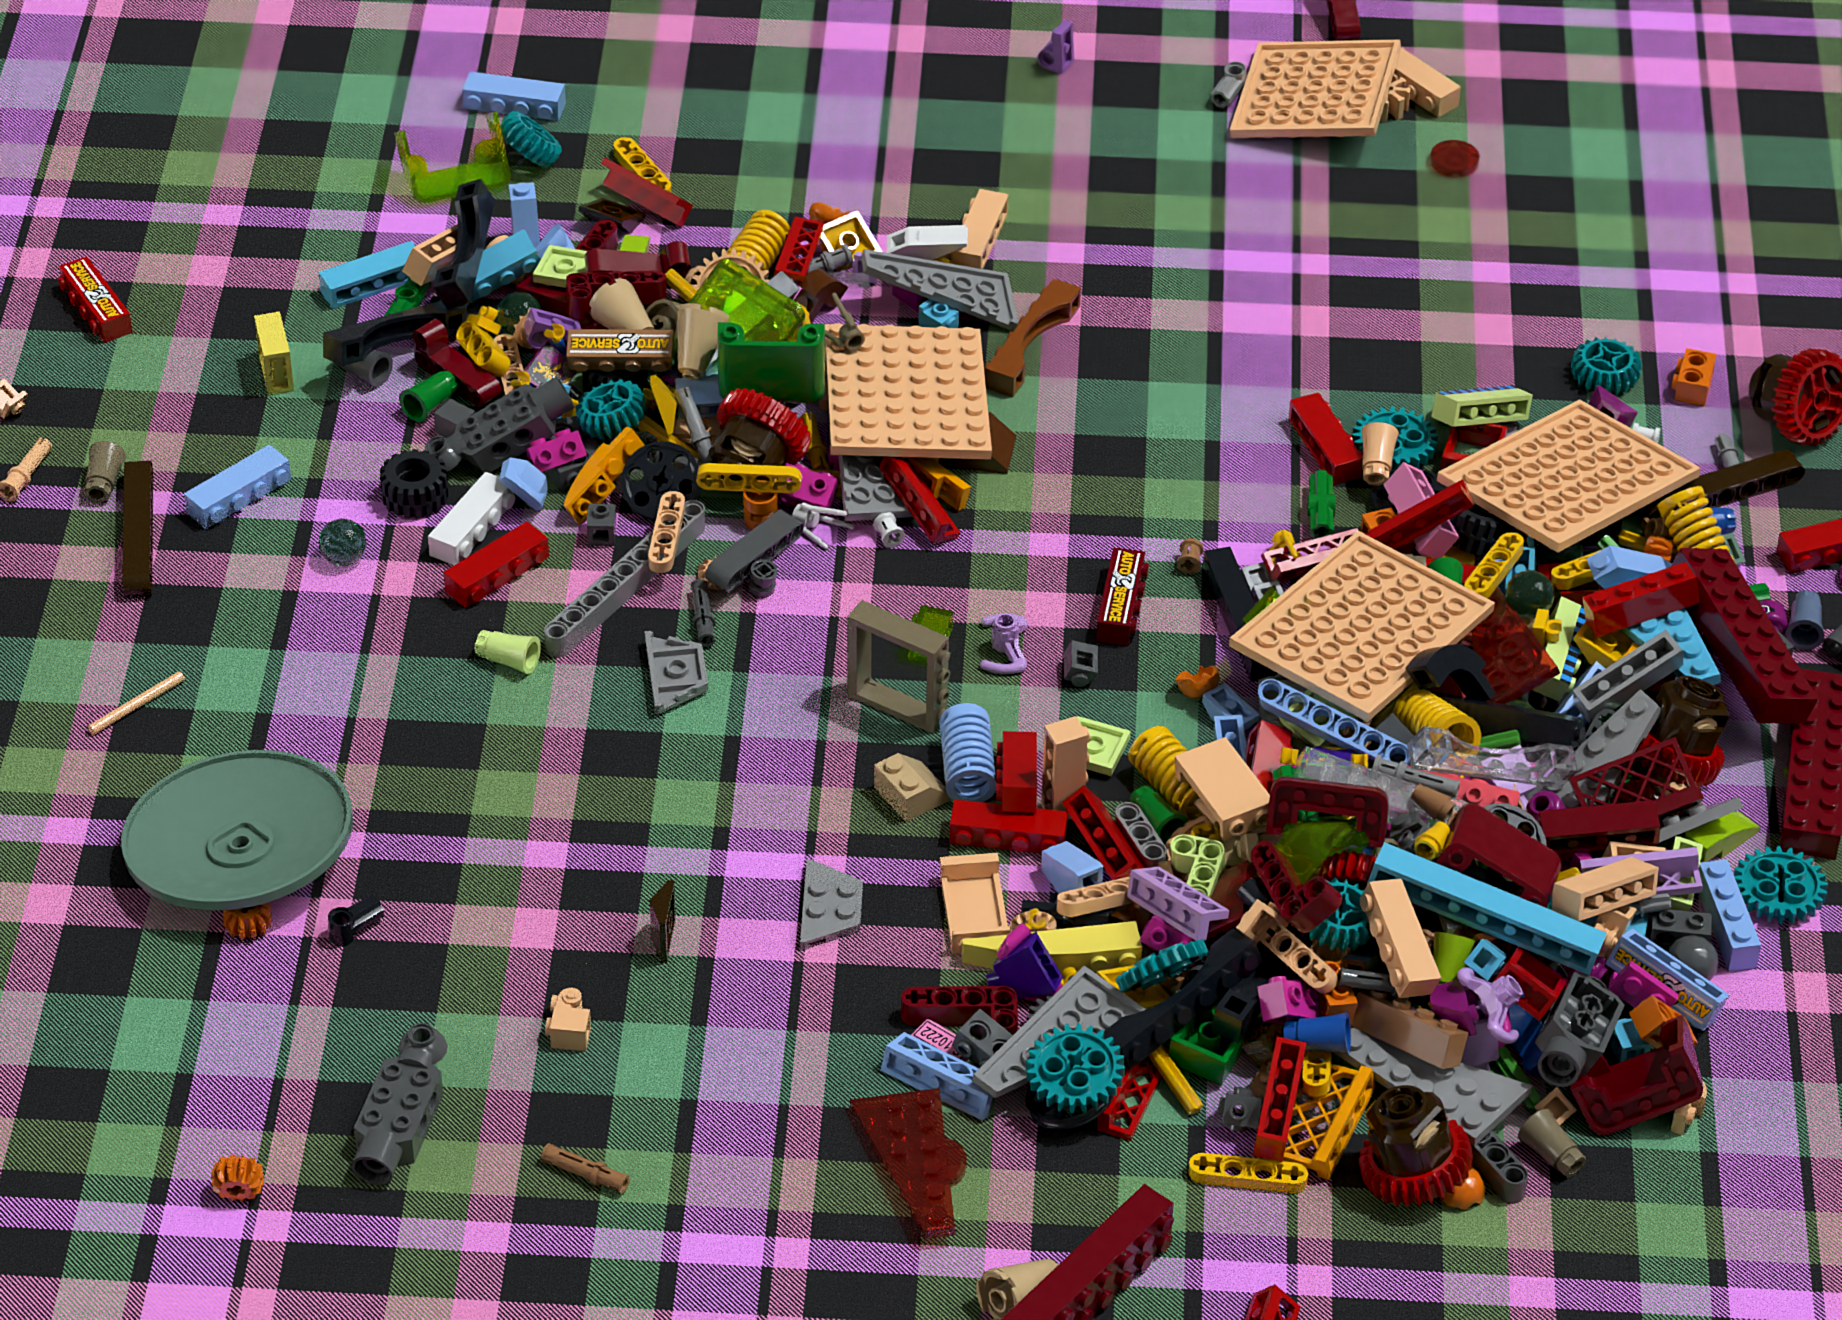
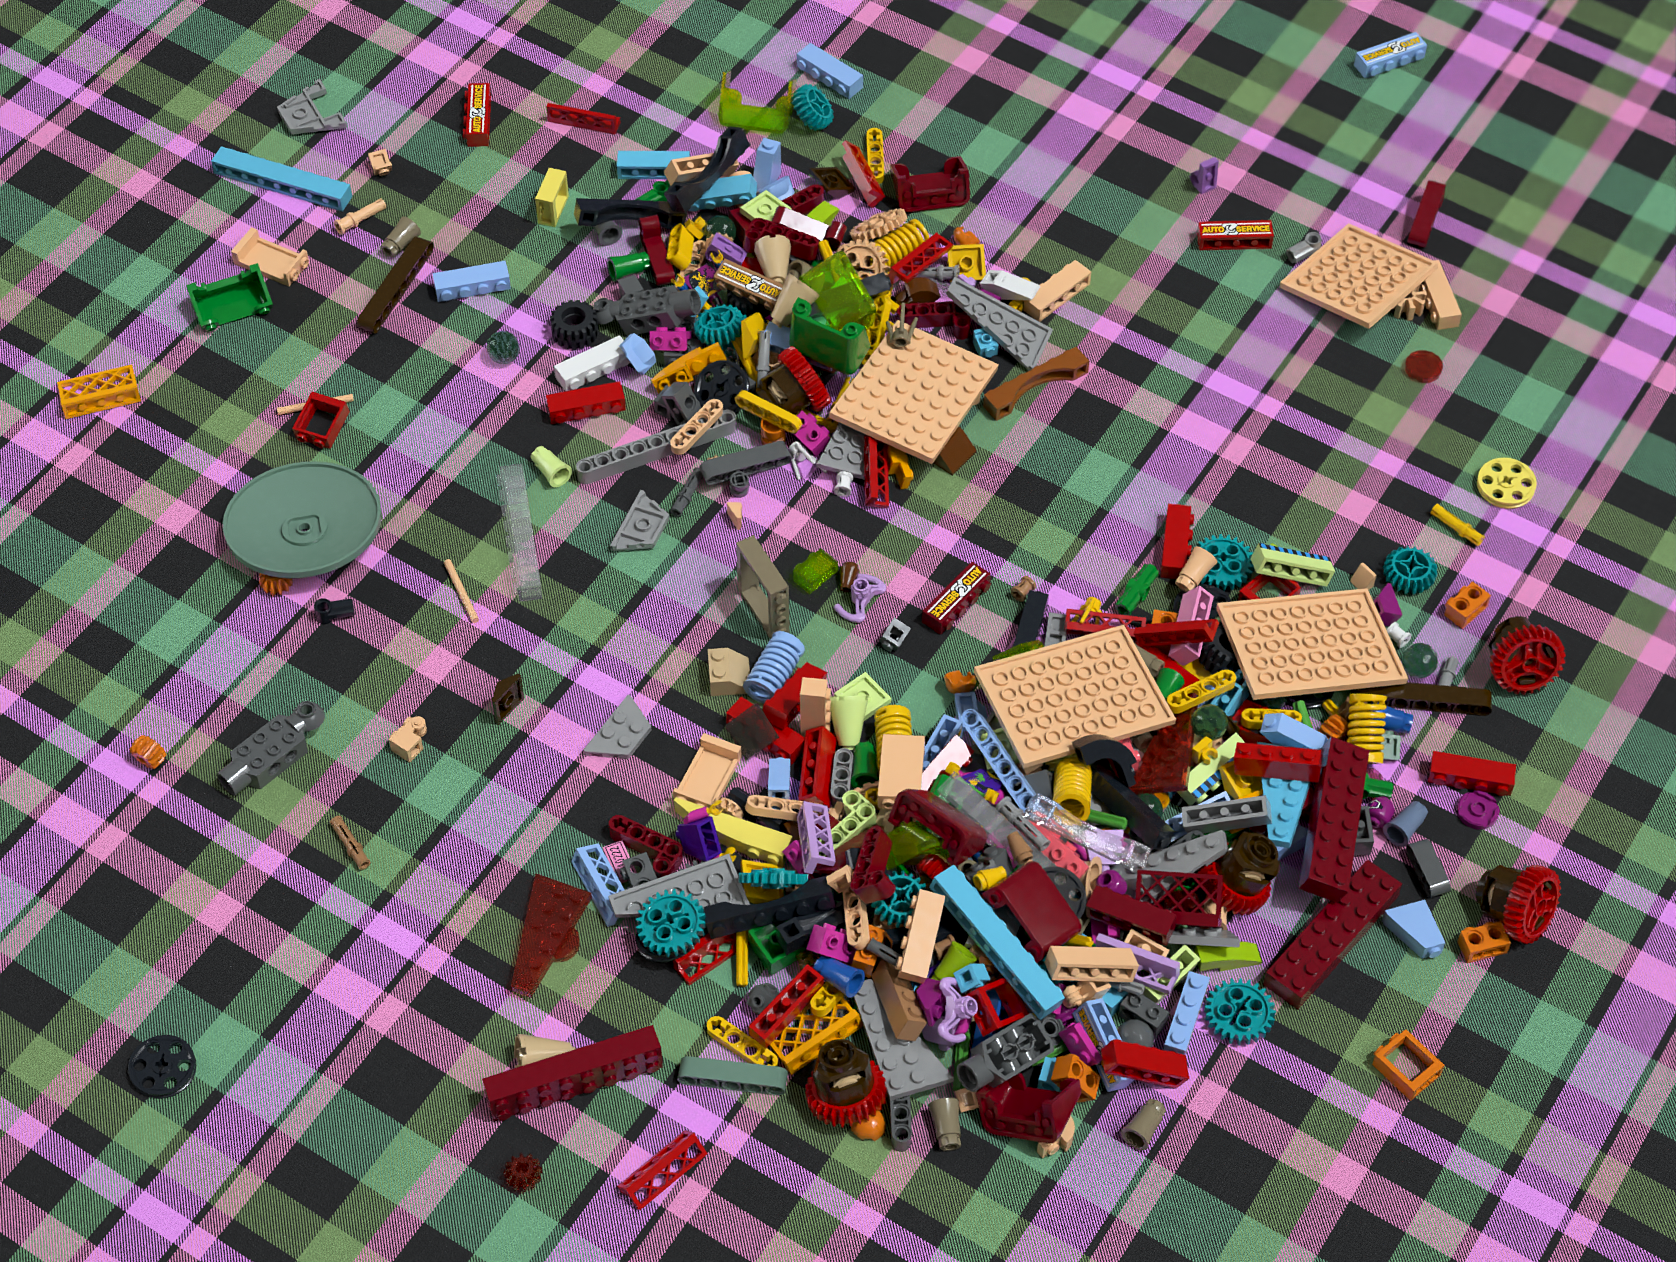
camera: 30 degrees right, 10 degrees up
(164, 692) = (327, 404): none -> red window
(237, 256) = (582, 118): none -> red fence
(500, 834) = (461, 591): none -> light nougat bar
(528, 738) = (520, 533): none -> clear brick
(627, 514) = (681, 402): none -> dark grey brick
(717, 233) = (879, 225): none -> light nougat gear
(759, 171) = (932, 189): none -> dark red windscreen
(783, 612) = (734, 511): none -> light nougat slope
(865, 305) = (938, 315): none -> dark red beam
(972, 622) = (848, 575): none -> reddish brown cone
(999, 829) = (752, 731): none -> clear smoke plate
(1106, 770) = (848, 719): none -> yellowish green cone
(1139, 100) = (1235, 235): none -> red brick
(1265, 1208) = (732, 1075): none -> sand green beam
(1561, 393) = (1363, 577): none -> light nougat slope
(1619, 302) = (1464, 530): none -> yellow pin
(1643, 237) = (1506, 489): none -> light yellow wedge
(1694, 445) = (1419, 660): none -> clear green piece
(1730, 975) = (1144, 1063): none -> red brick
(1770, 1046) = (1143, 1125): none -> dark tan plant

